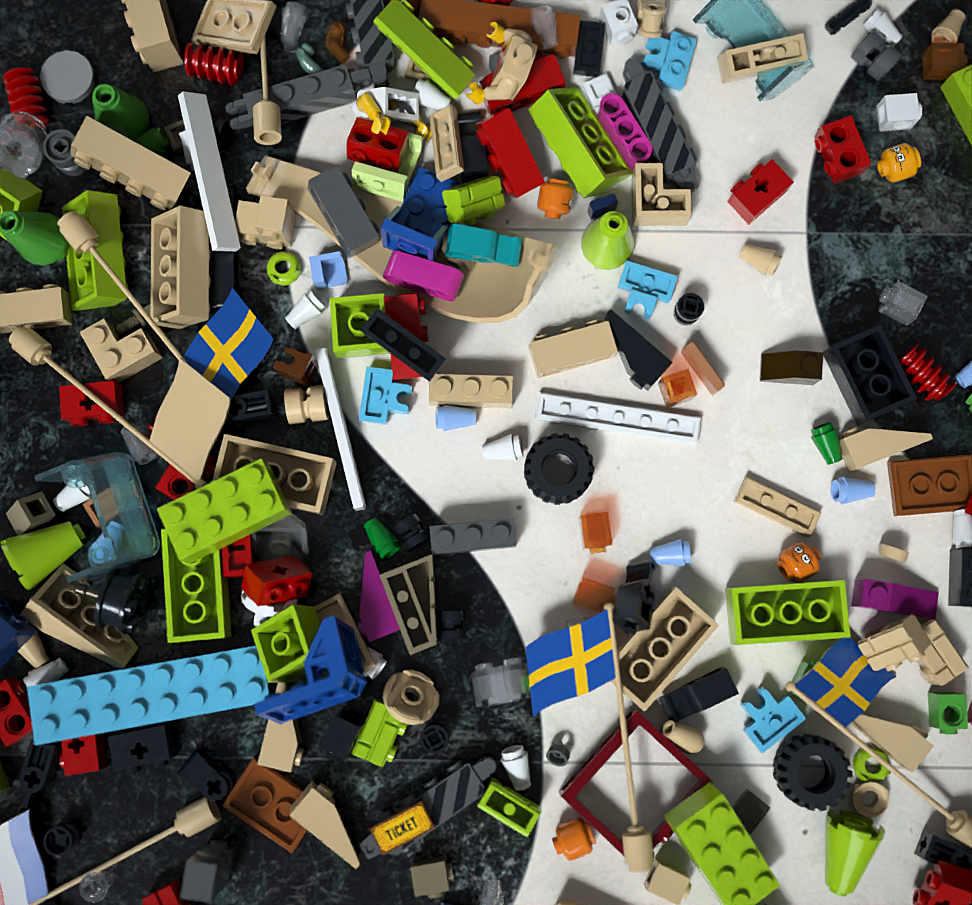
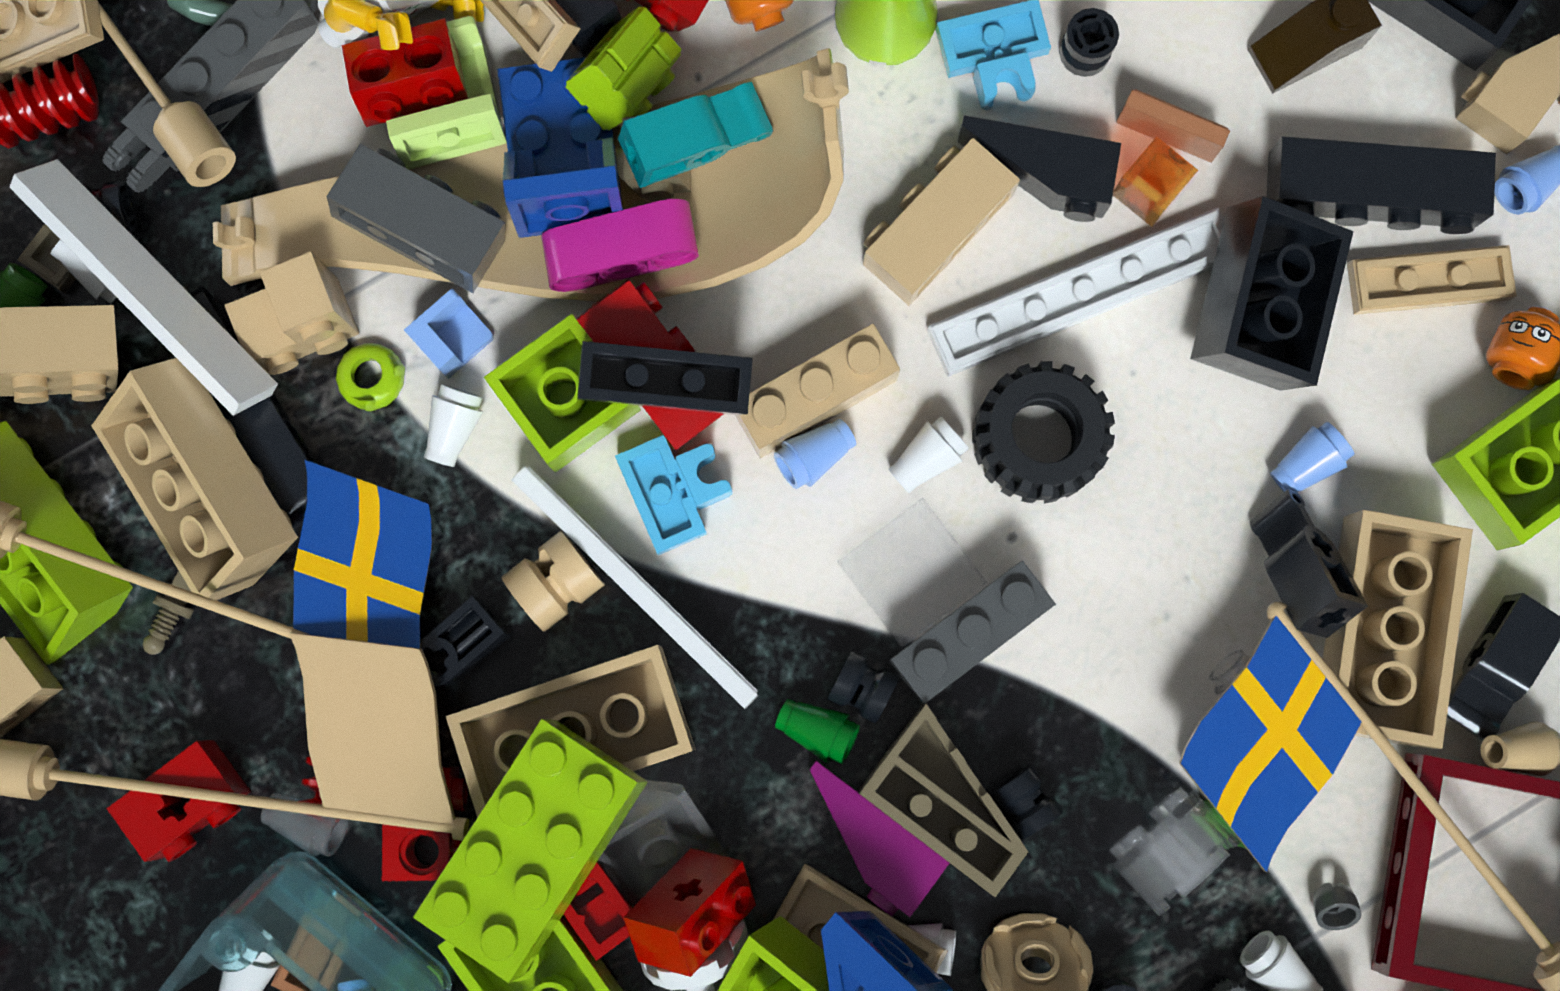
camera: 30 degrees left, 0 degrees up
(118, 356) = (176, 696): tan brick -> none
(301, 369) = (507, 527): reddish brown hinge -> none
(465, 495) = (912, 572): none -> clear tile
(593, 595) = (1229, 608): clear orange brick -> none
(595, 532) = (1167, 501): clear orange brick -> none
(697, 469) = (1272, 294): none -> black brick
(780, 450) = (1383, 183): none -> black brick
(827, 442) = (1445, 123): green cone -> none

